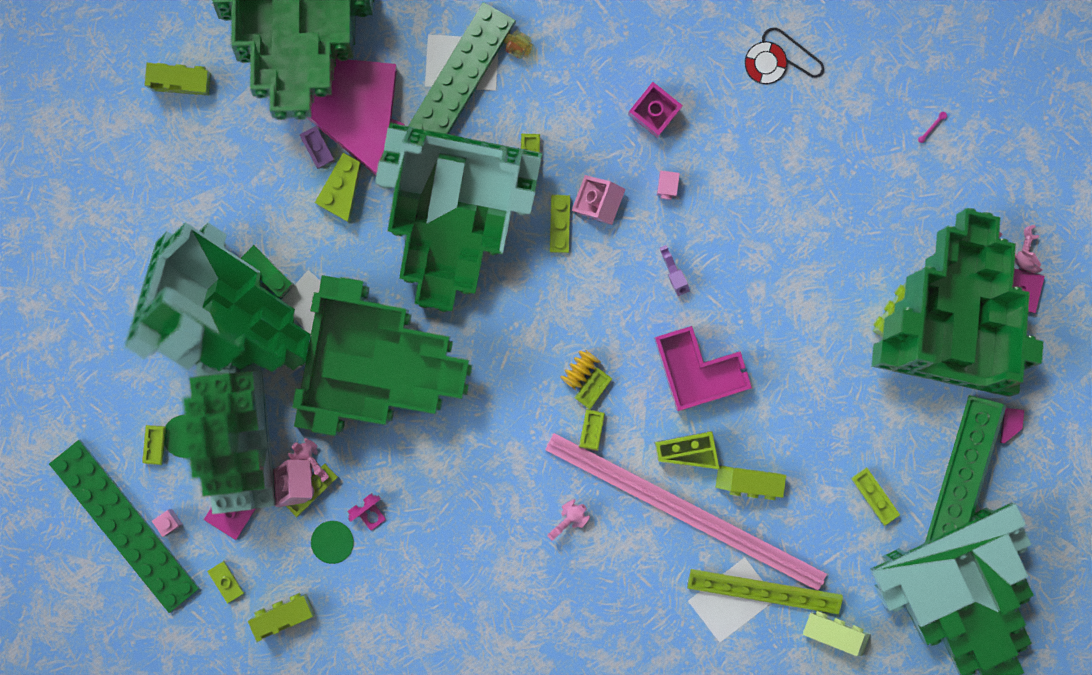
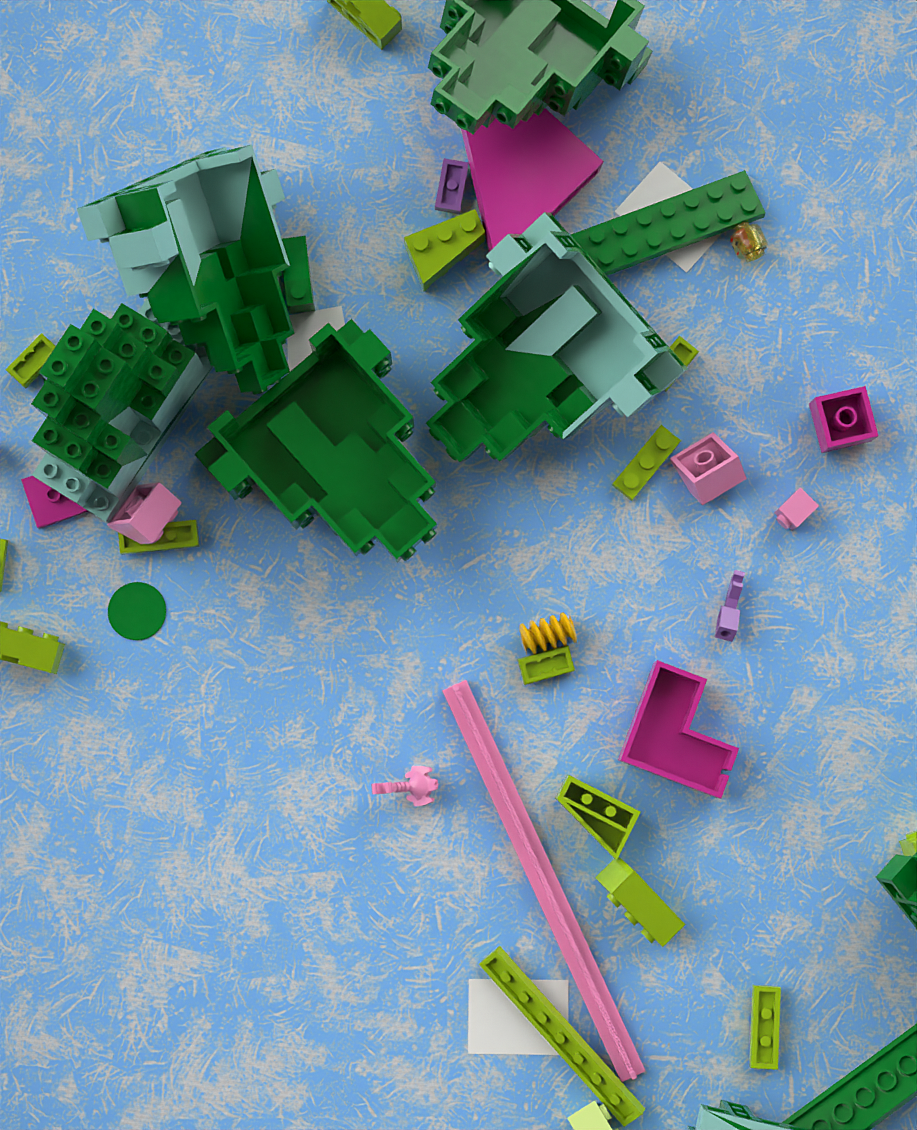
camera: 35 degrees right, 5 degrees down
(304, 452) = (185, 491): bright pink piece -> none
(370, 505) = (209, 600): dark pink bracket -> none
(591, 430) = (509, 708): lime plate -> none

